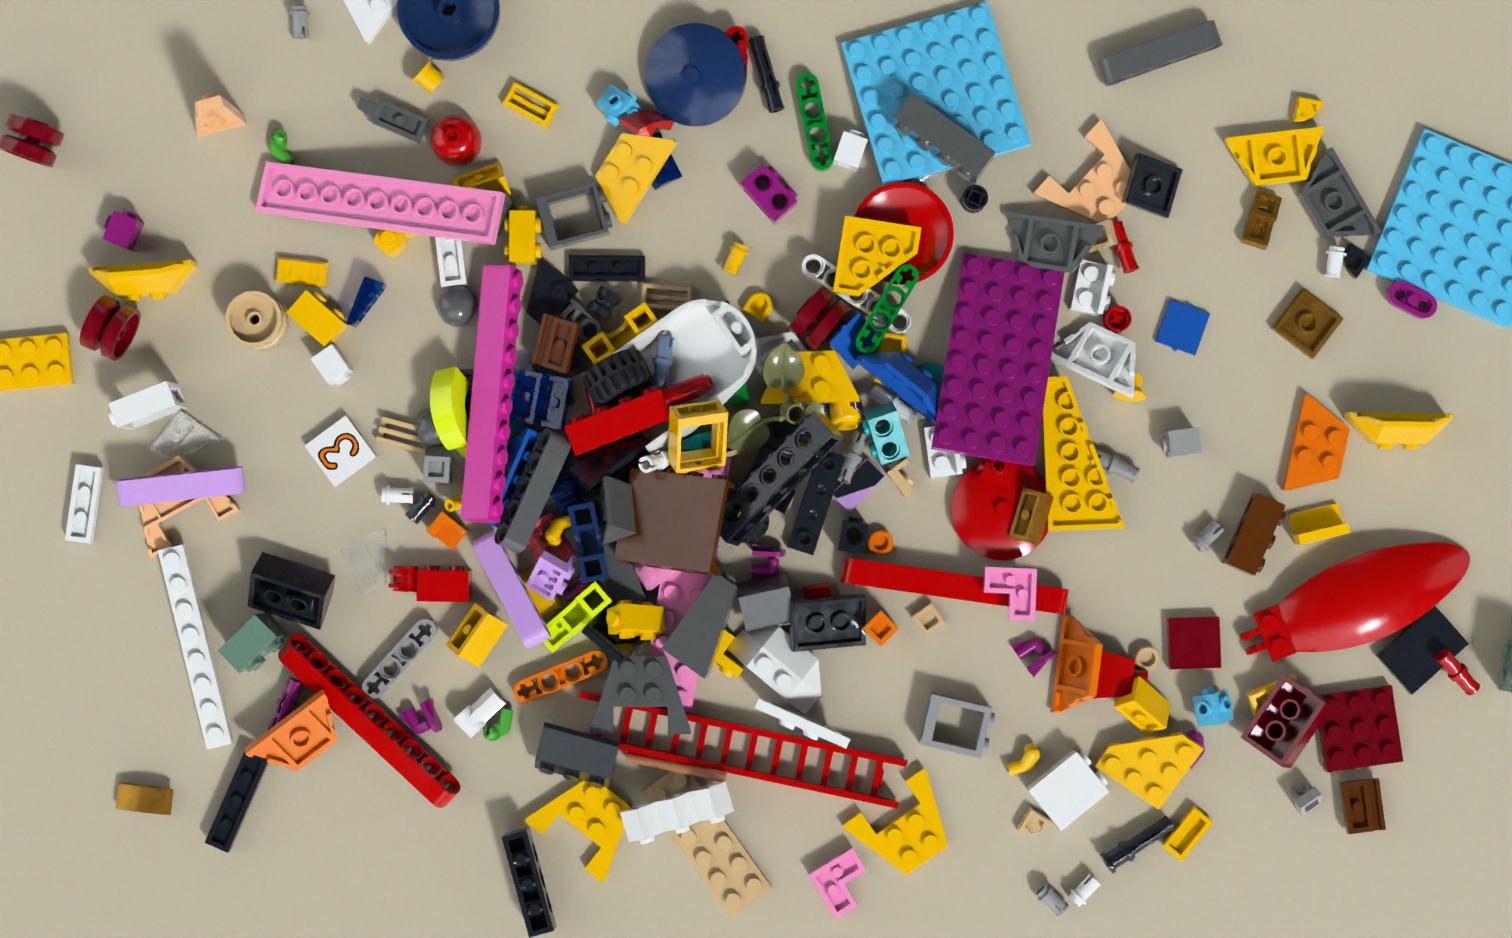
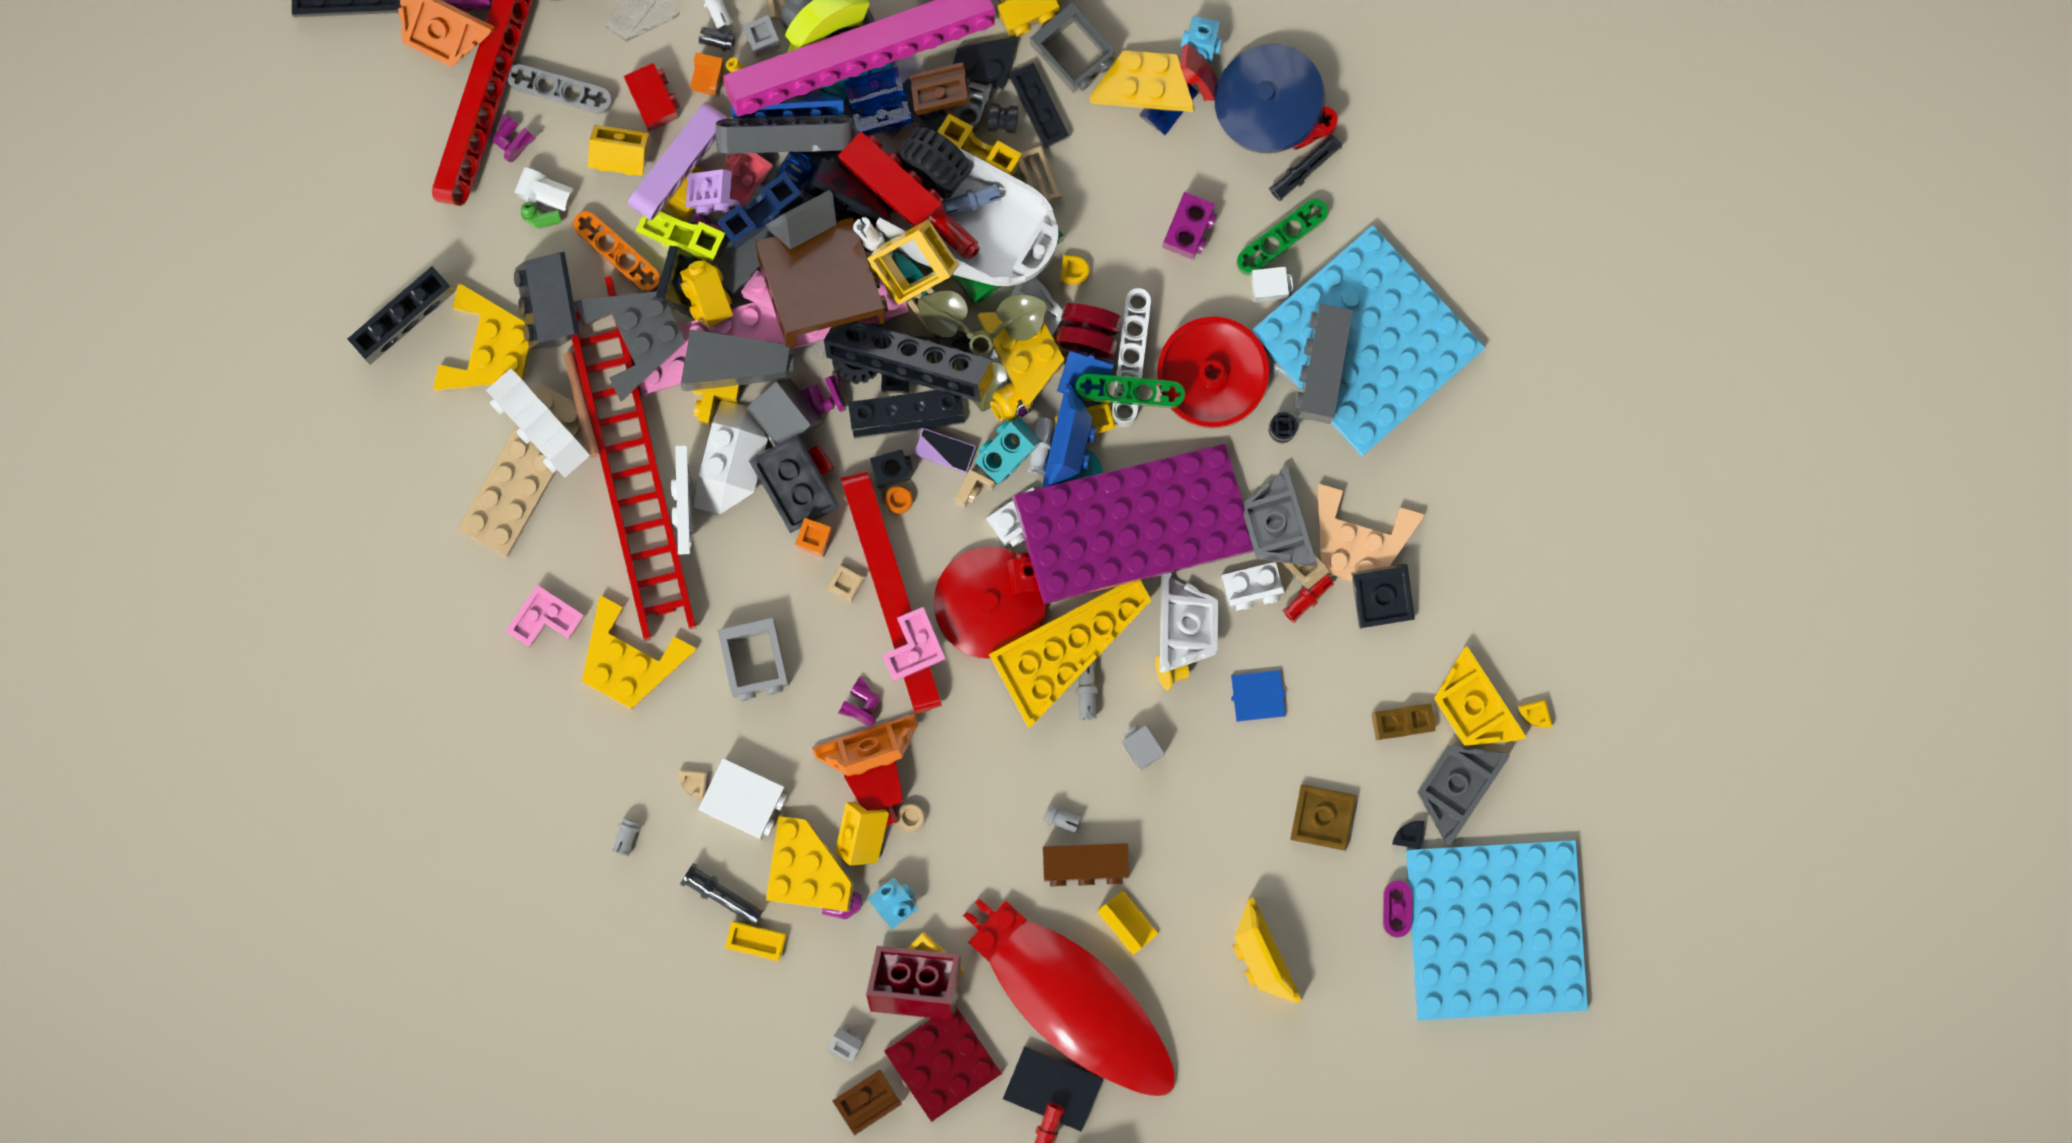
camera: 60 degrees right, 5 degrees down
(404, 578) = (639, 55): red tile -> none
(555, 530) = (755, 175): yellow arm -> none
(735, 258) = (1109, 224): yellow pin -> none
(852, 456) = (968, 430): light grey pin -> none
(872, 252) = (1178, 349): yellow plate -> none
(1027, 762) = (751, 748): yellow arm -> none
(1031, 516) = (995, 631): pearl gold slope -> none
(1084, 890) = (649, 864): white pin -> none
(1120, 316) = (1236, 621): red wheel -> none
(1159, 53) = (1518, 541): dark grey beam -> none
(1194, 642) = (949, 856): dark red tile -> none
(1316, 446) = (1203, 885): orange wing -> none
(1334, 262) = (1397, 814): white pin -> none

